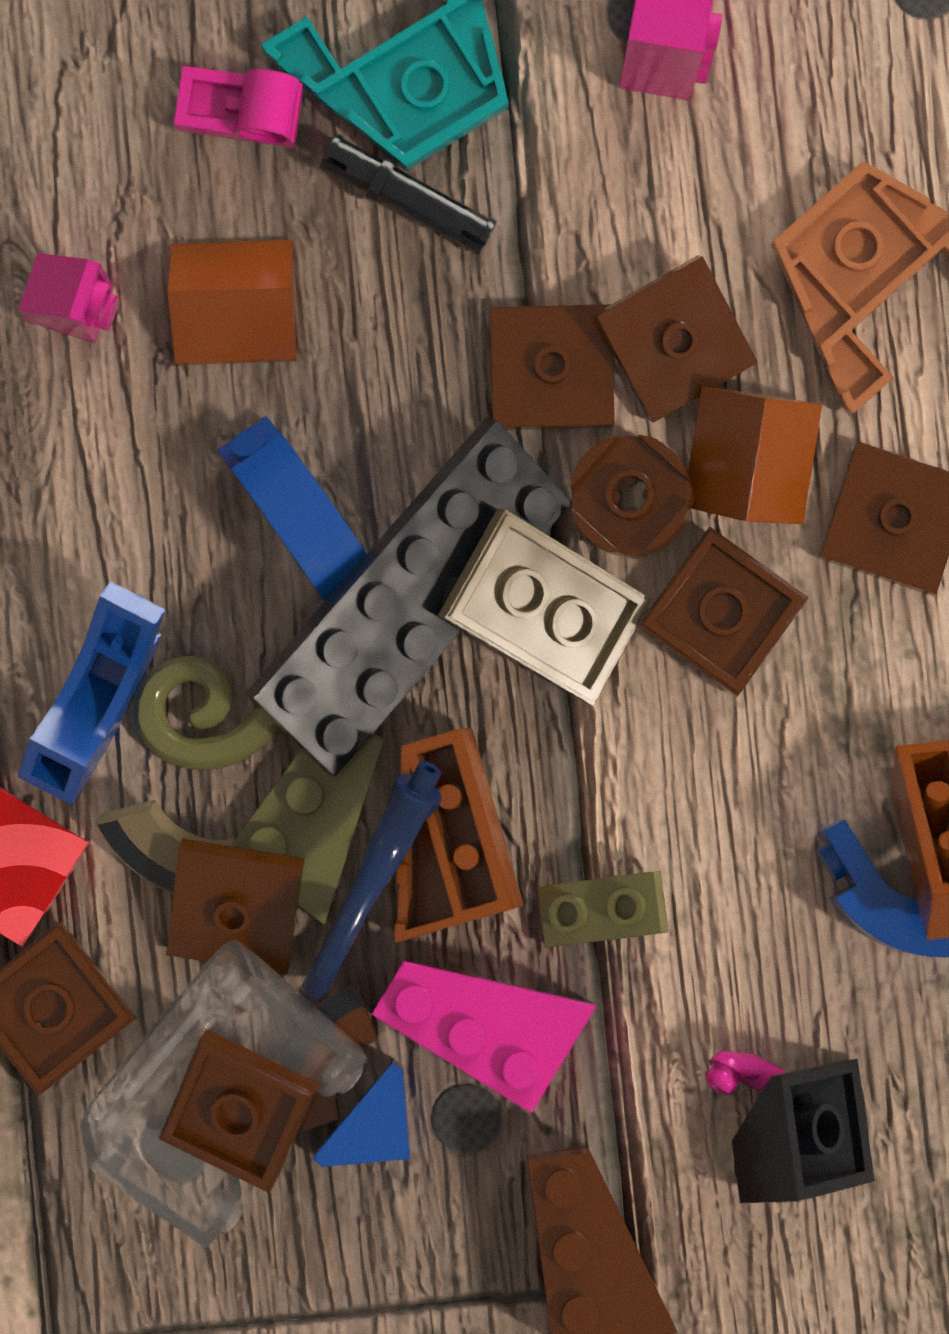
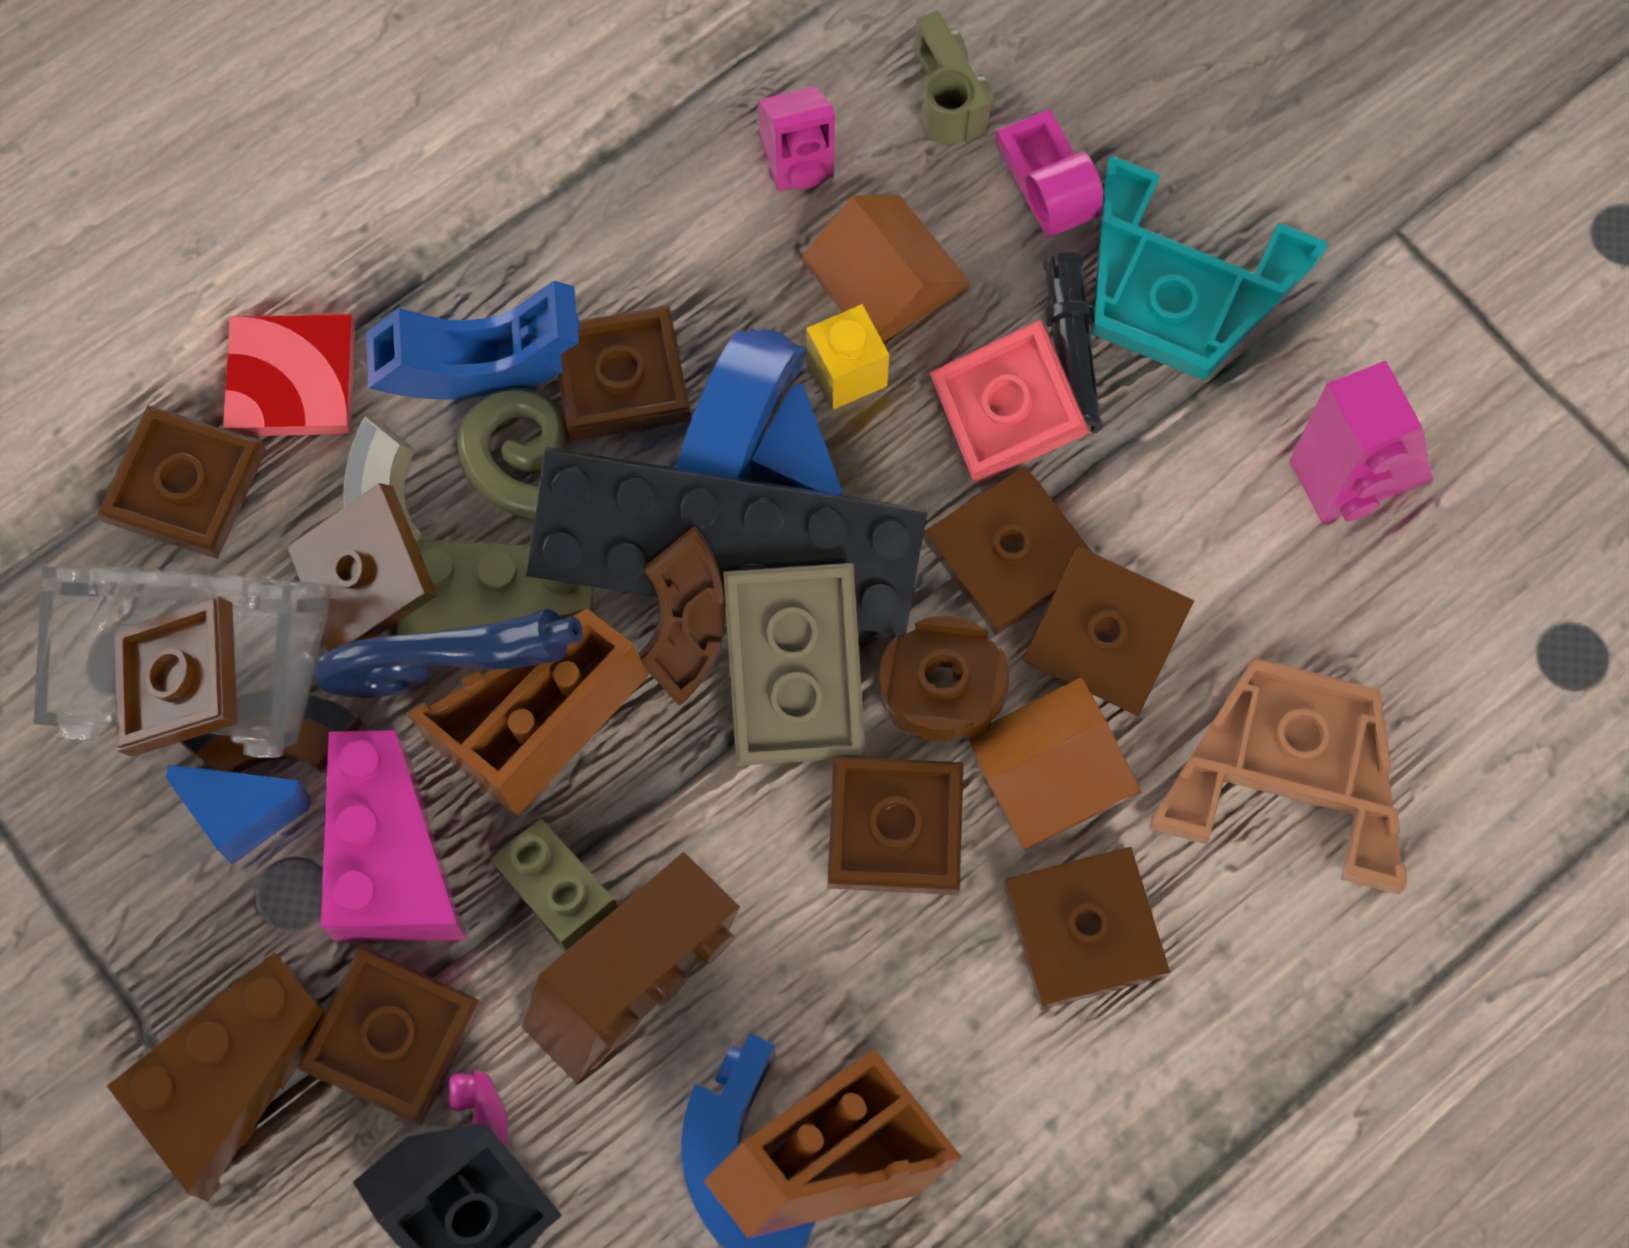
camera: 60 degrees right, 15 degrees down
(70, 120) = (952, 82): none -> olive plate
(198, 579) = (623, 375): none -> reddish brown plate
(302, 389) = (847, 356): none -> yellow brick
(364, 488) = (794, 449): none -> blue slope
(428, 283) = (1009, 402): none -> coral tile
(454, 666) = (690, 615): none -> reddish brown tile
(638, 1108) = (390, 1035): none -> reddish brown plate
(709, 888) = (629, 965): none -> reddish brown wedge

